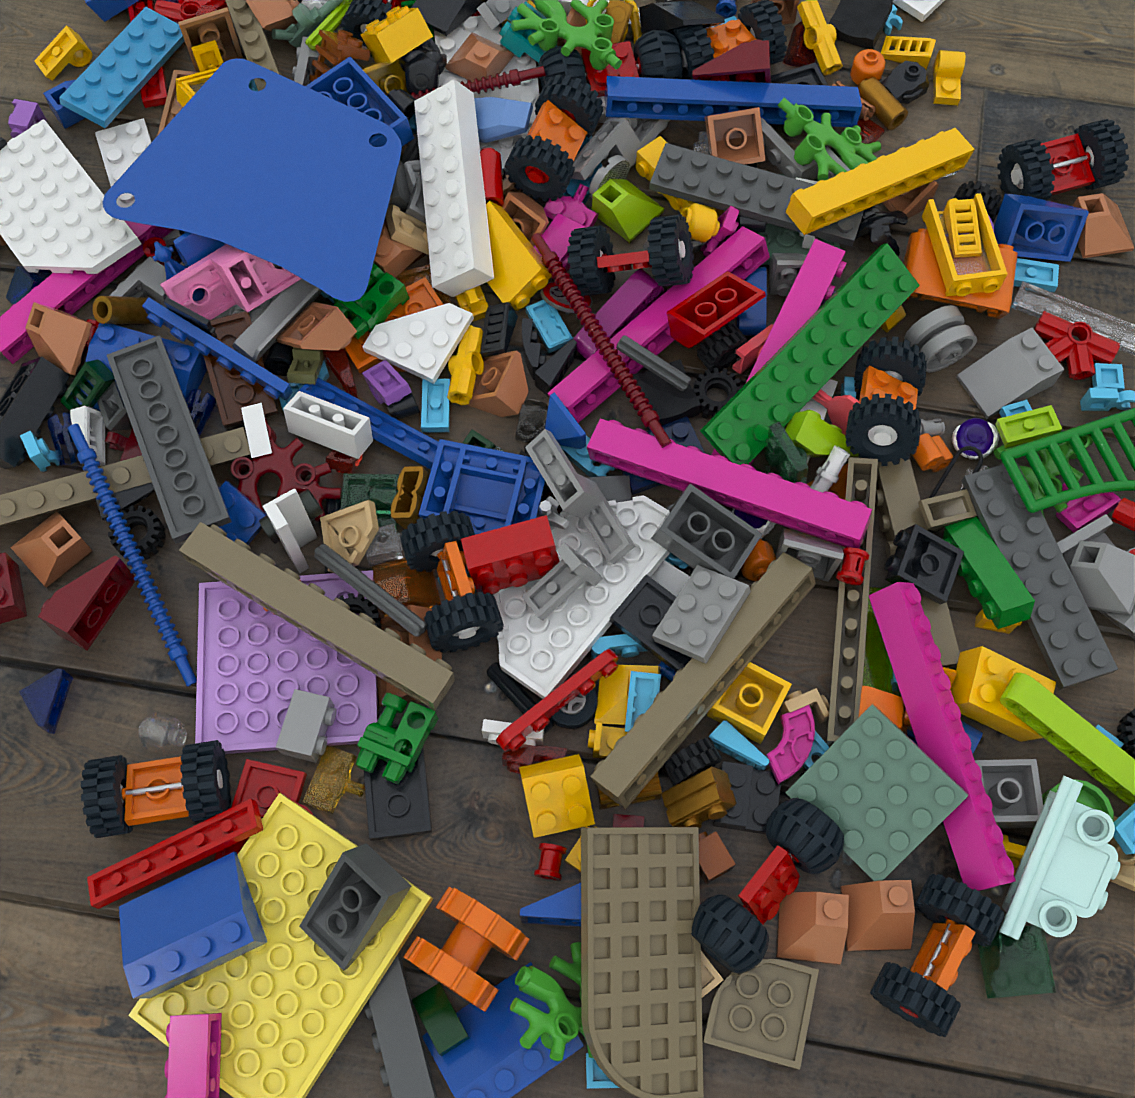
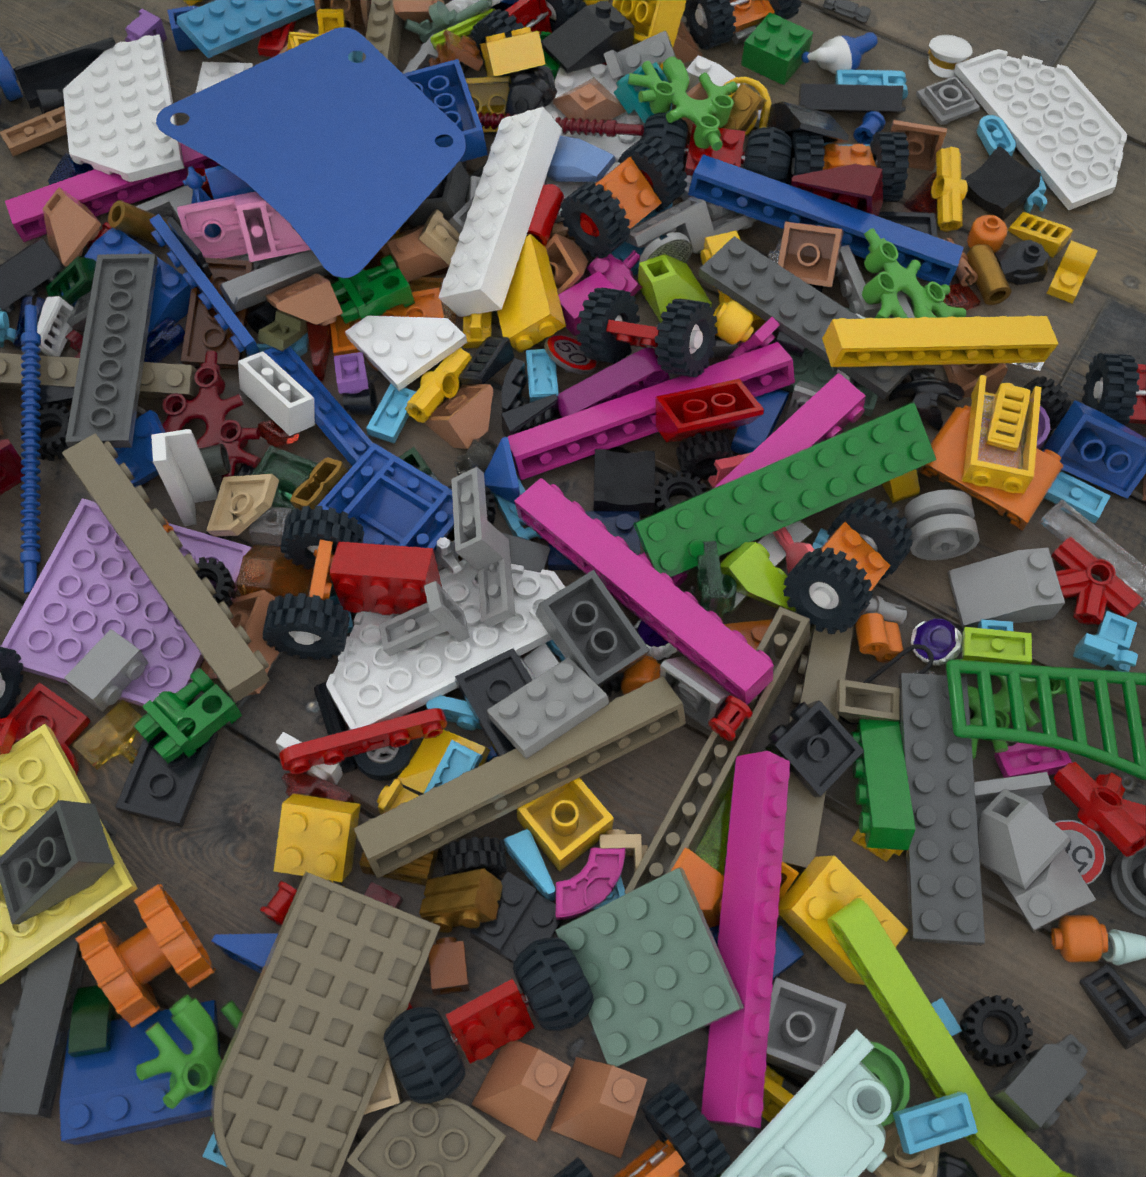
camera: 20 degrees right, 5 degrees down
(256, 430) = (203, 373): white sticker -> none
(370, 590) = (232, 562): dark grey axle -> none
(403, 101) = (489, 117): black hat -> none
(625, 379) = (576, 397): dark red hose -> none
(653, 363) = (621, 443): dark grey axle -> none
(829, 471) = (756, 614): white pin -> none

